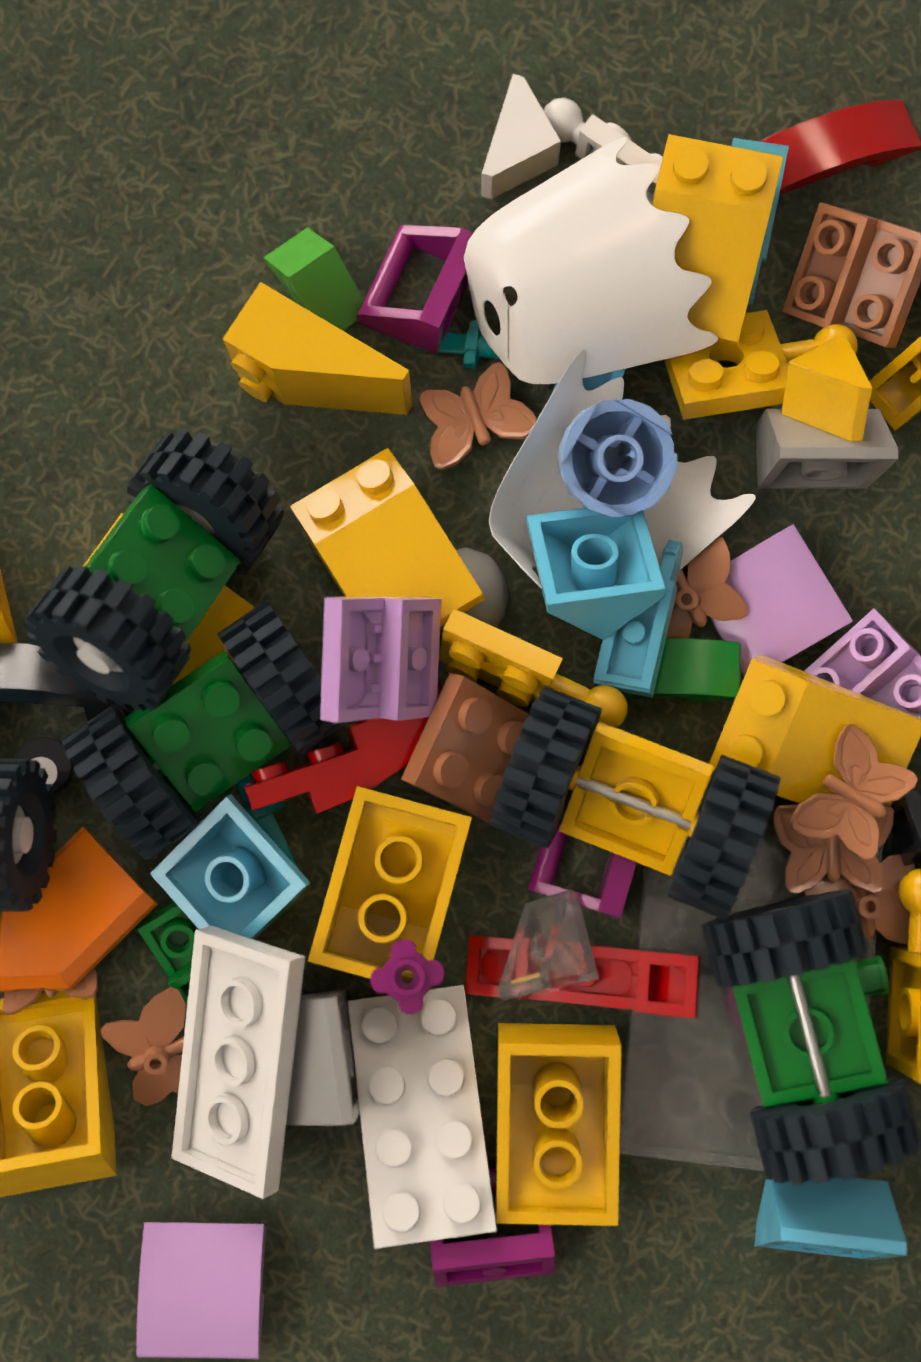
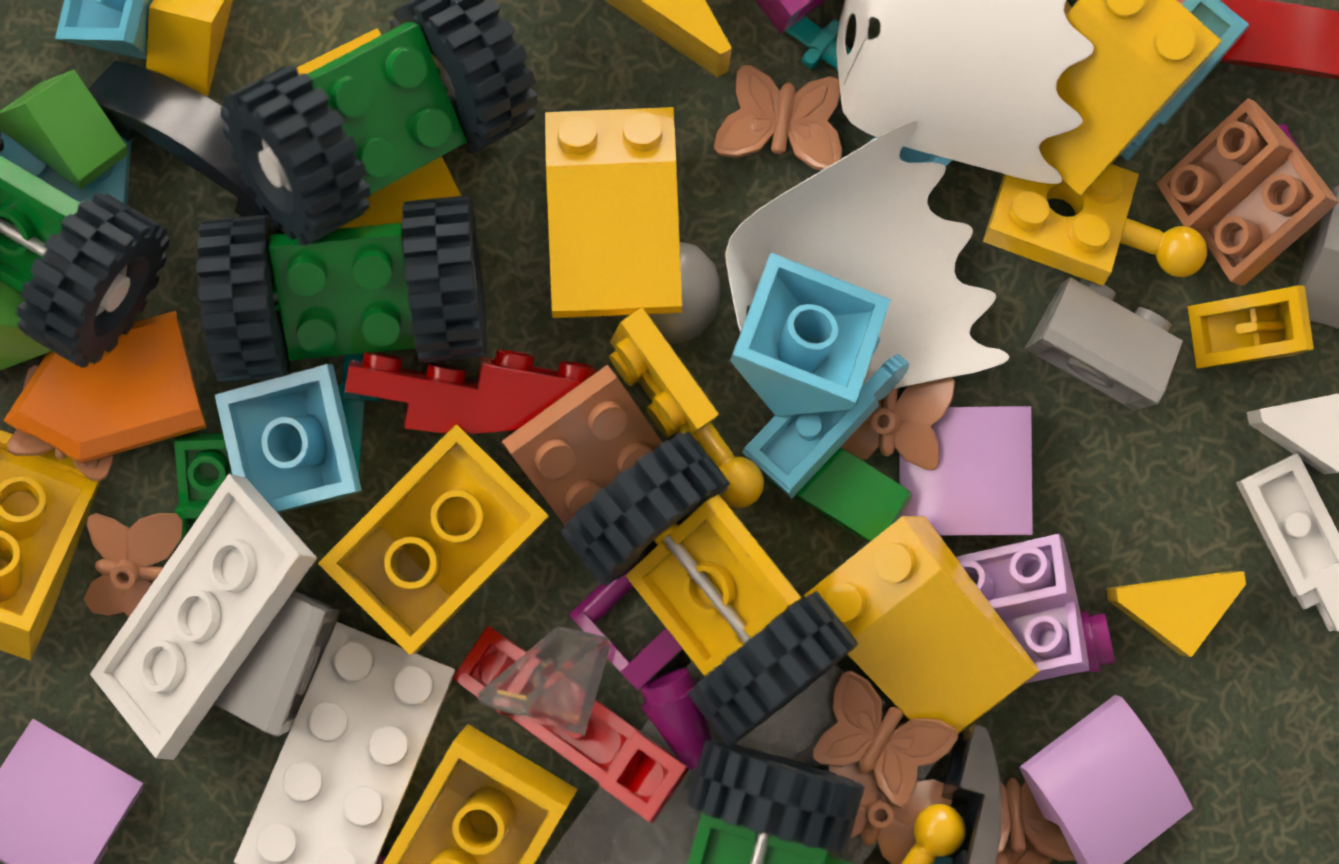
camera: 25 degrees right, 5 degrees up
(52, 757) = (182, 227): black tile -> none
(379, 658) = (545, 315): lavender slope -> none
(424, 972) = (420, 635): magenta plate -> none
(617, 457) = (887, 247): light blue cylinder -> none
(664, 919) = (677, 715): none -> magenta cone
(829, 390) = (1135, 293): yellow slope -> none
(857, 798) = (928, 704): nougat piece -> none

